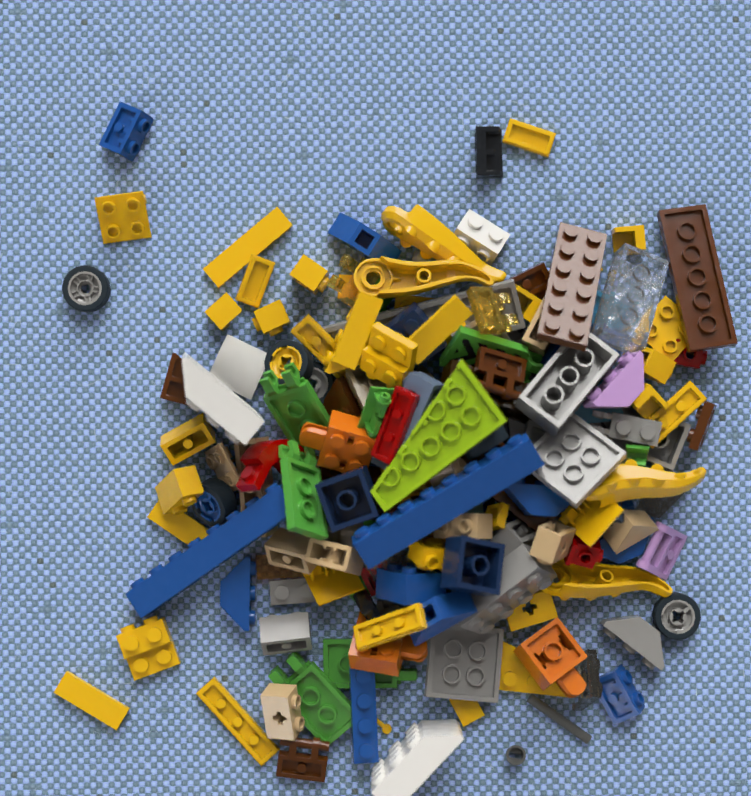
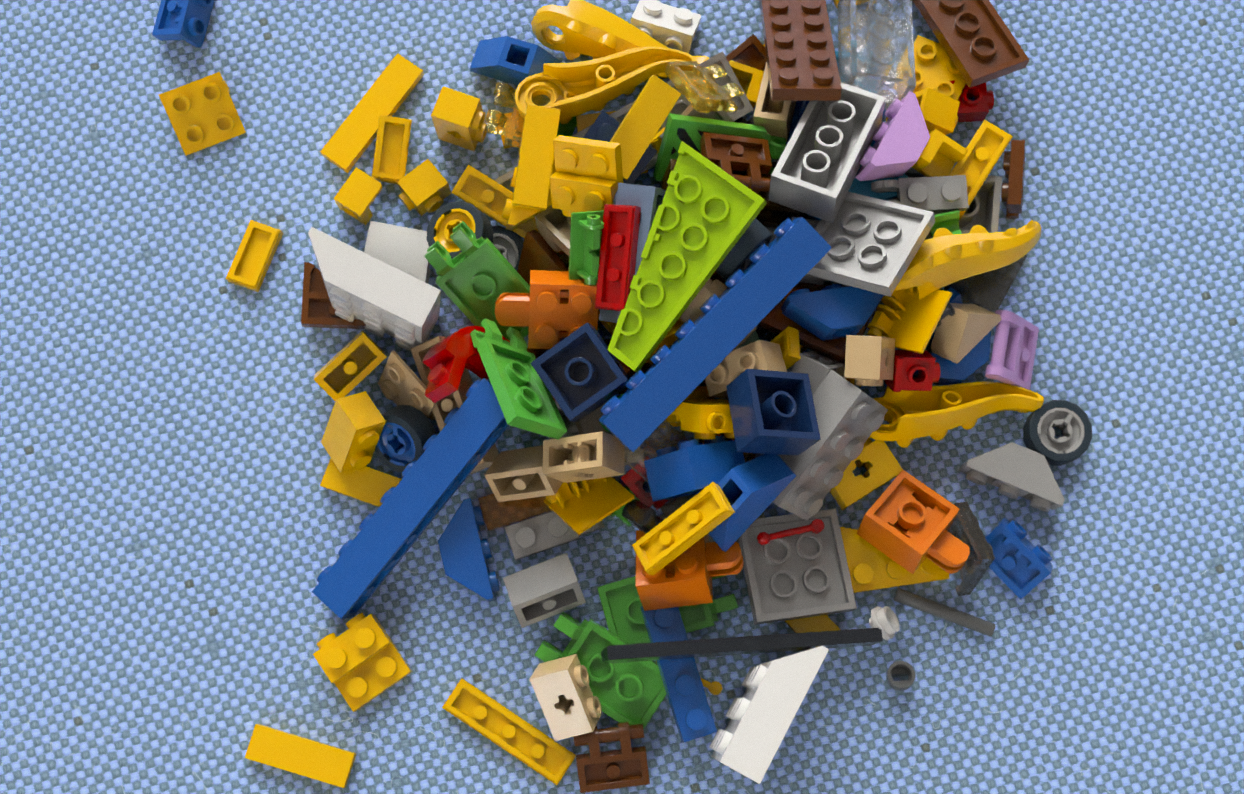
camera: 15 degrees left, 10 degrees down
(84, 276) = (165, 200): wheel -> none
(137, 334) = (254, 256): none -> yellow tile
(410, 710) = (740, 645): none -> black tile
(486, 639) = (815, 526): none -> red hinge
(514, 716) = (886, 620): none -> white plate

